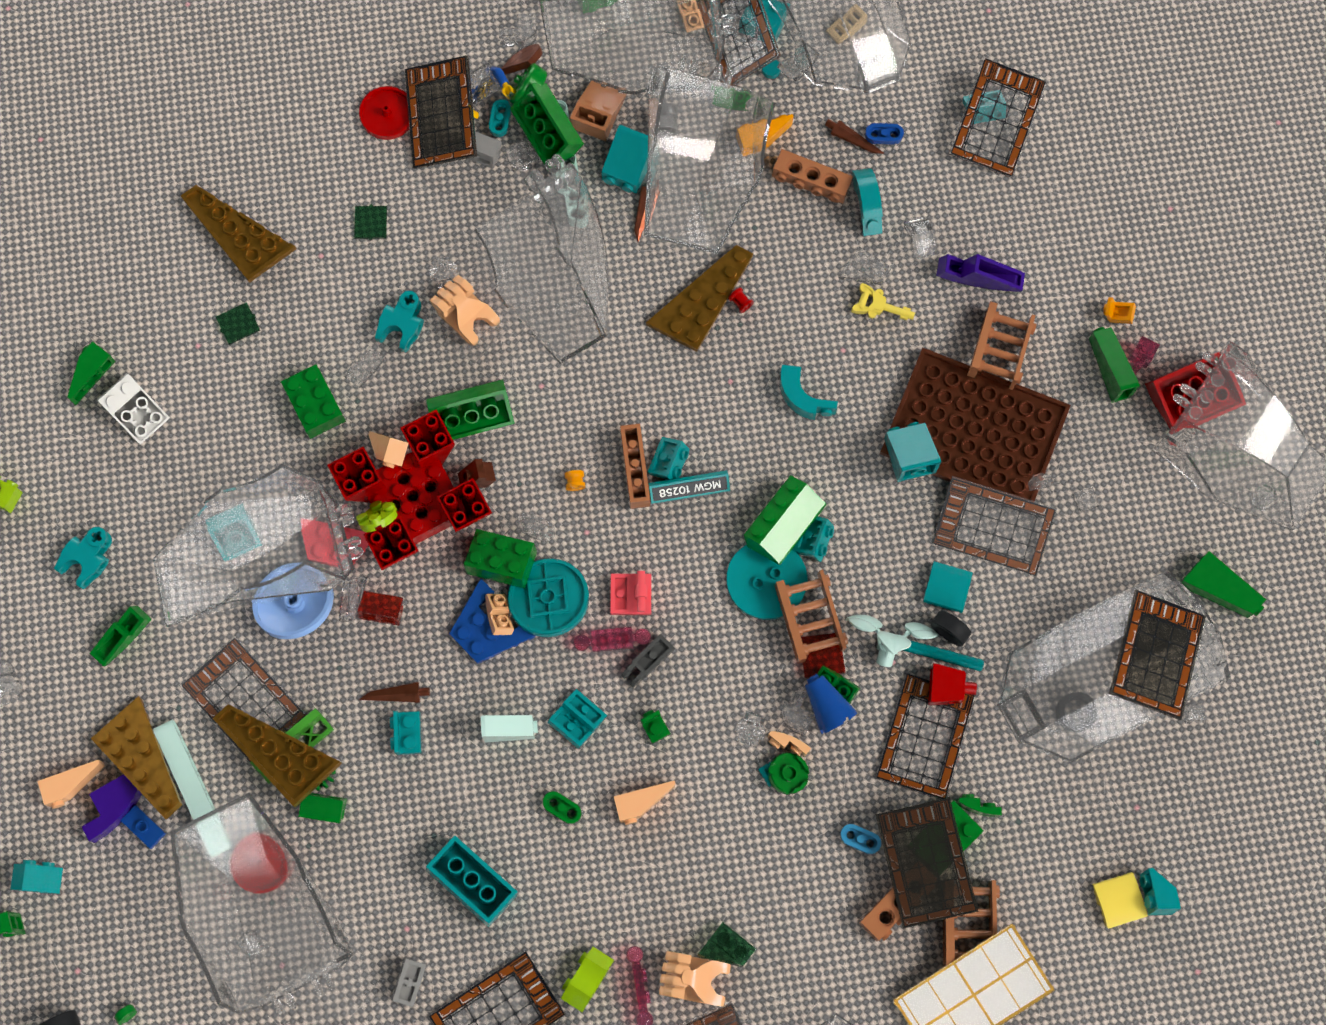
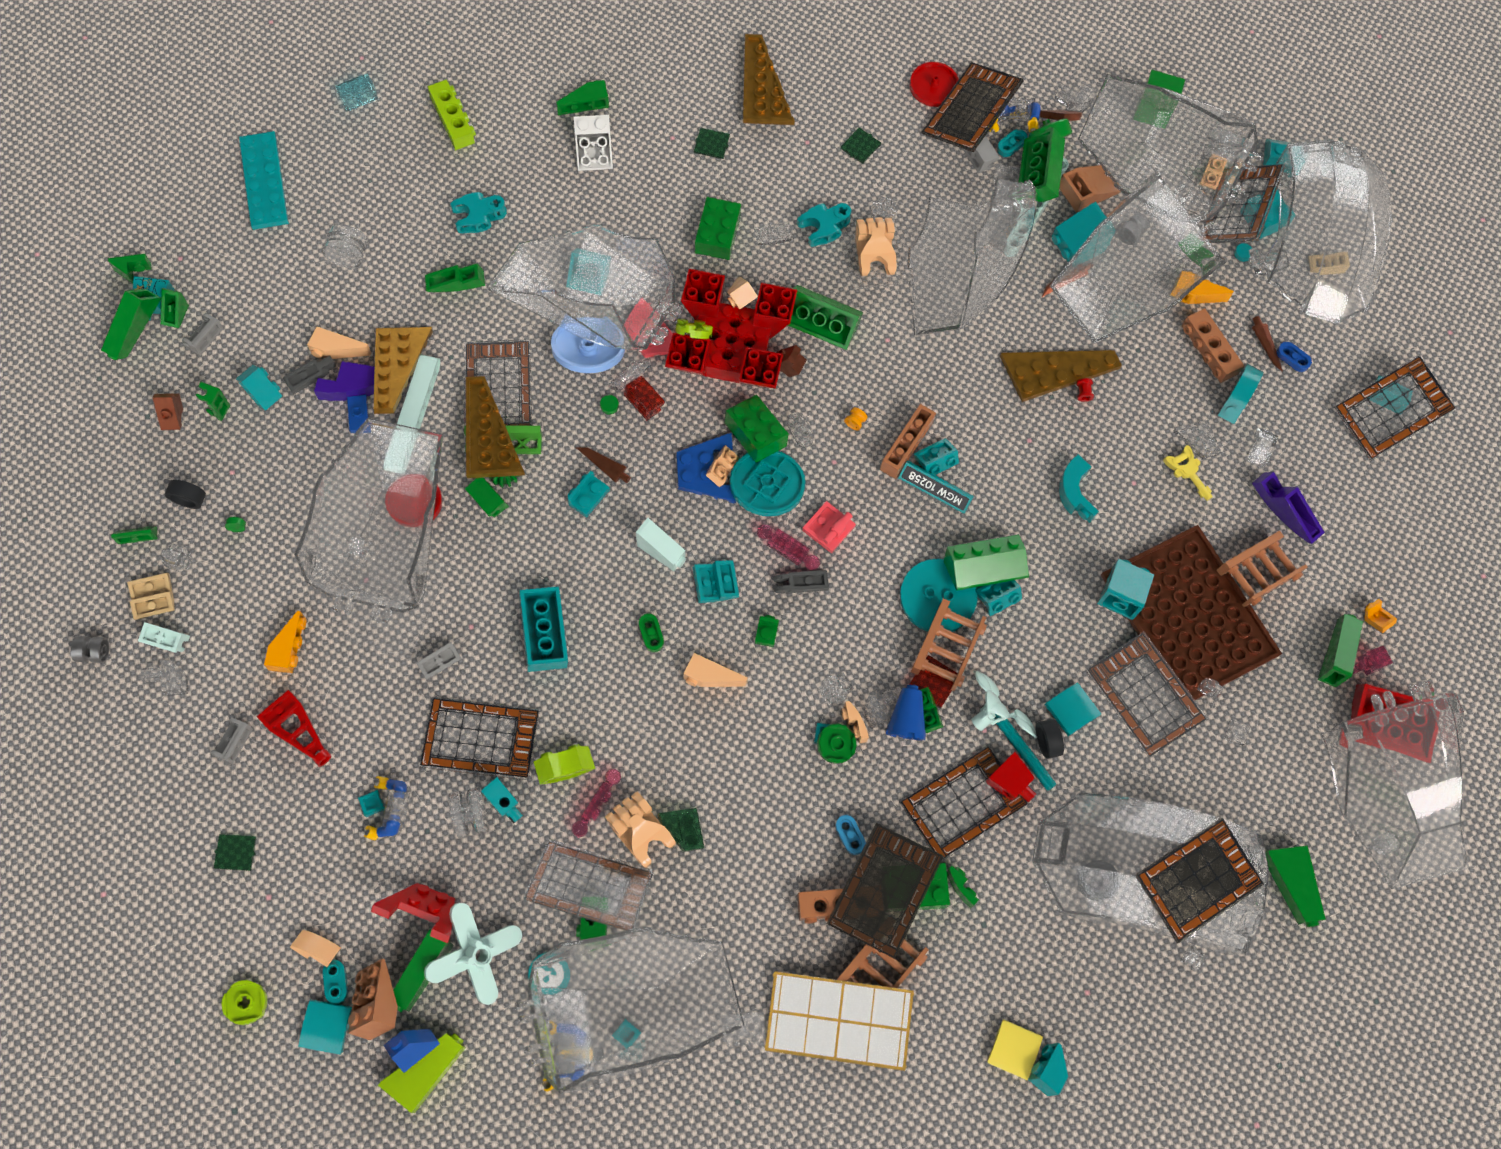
camera: 35 degrees right, 5 degrees down
(67, 828) = (308, 374): none -> dark grey hinge
(355, 638) = (609, 404): none -> green tile

